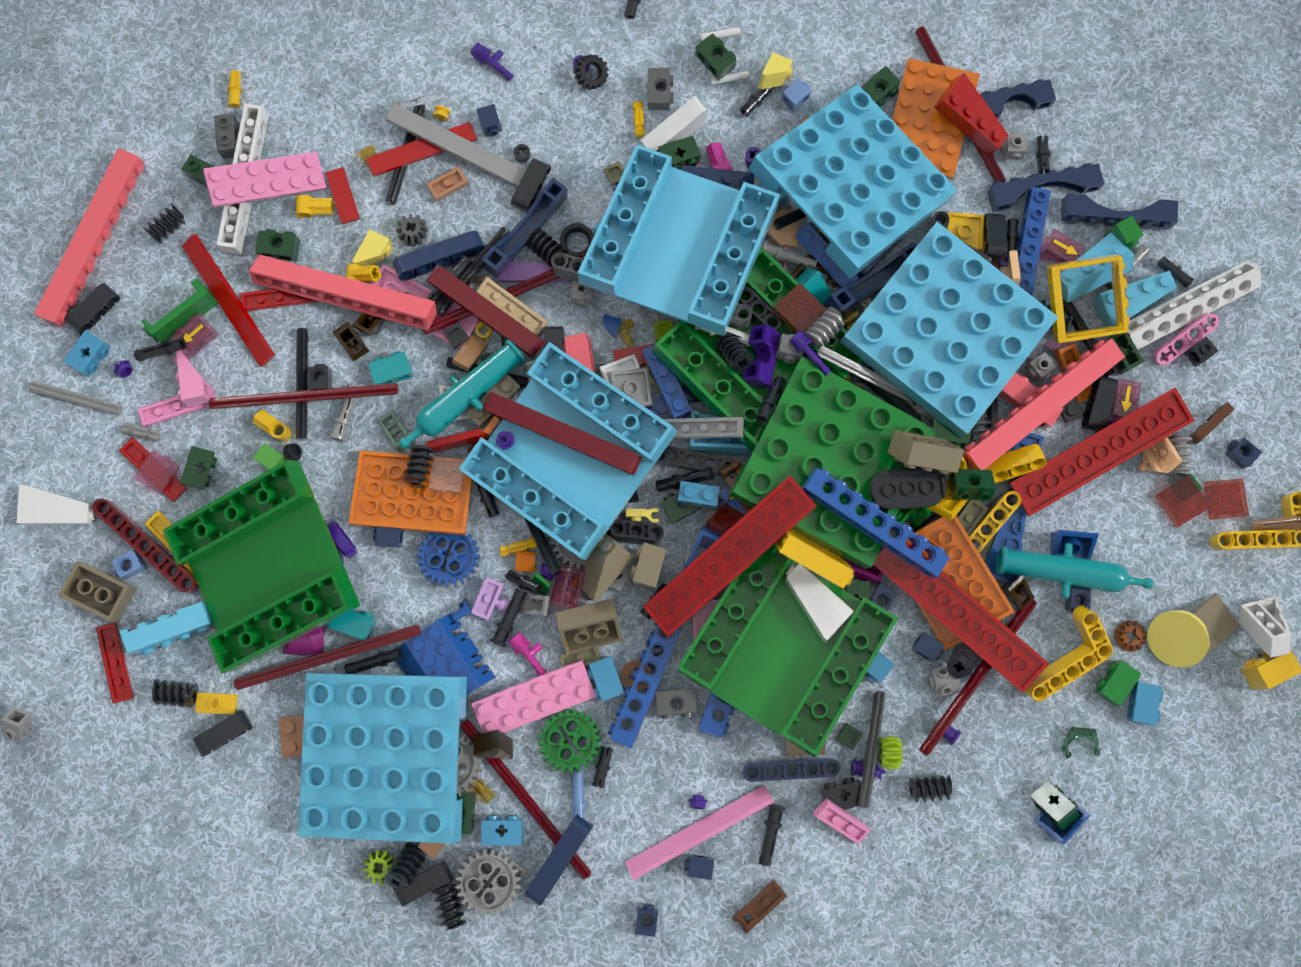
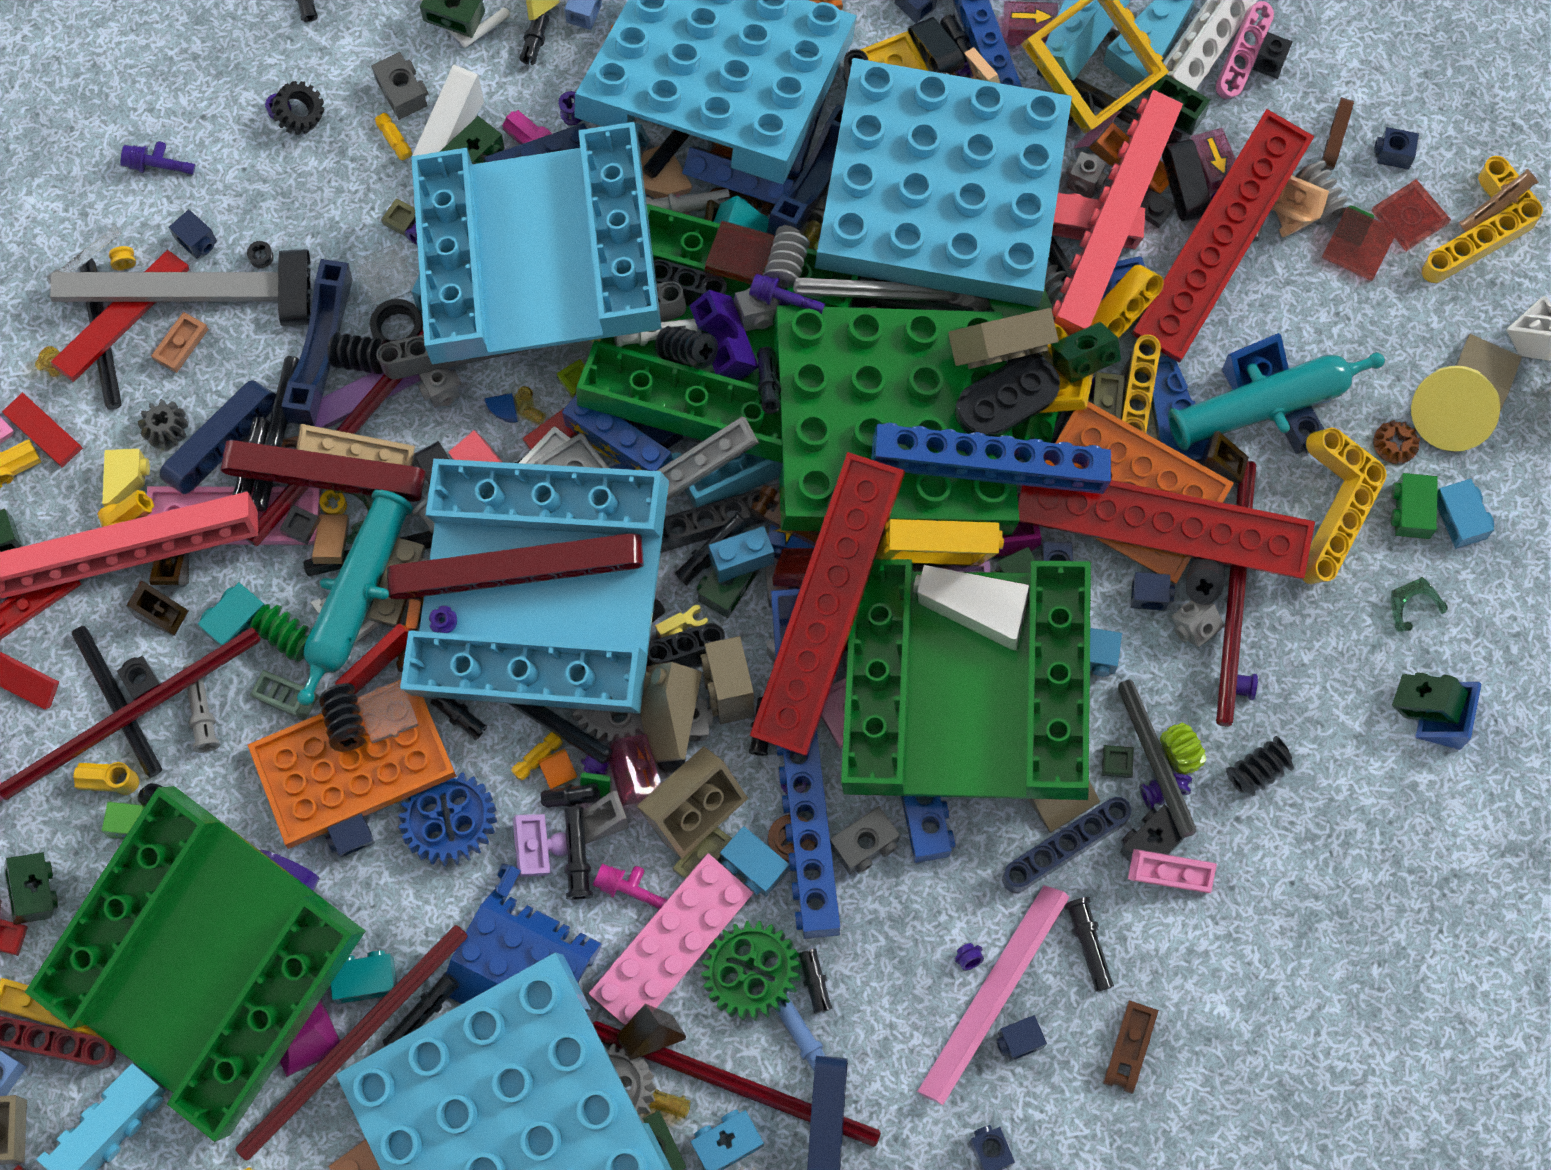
camera: 25 degrees left, 10 degrees down
(412, 393) = (280, 631): none -> green piece

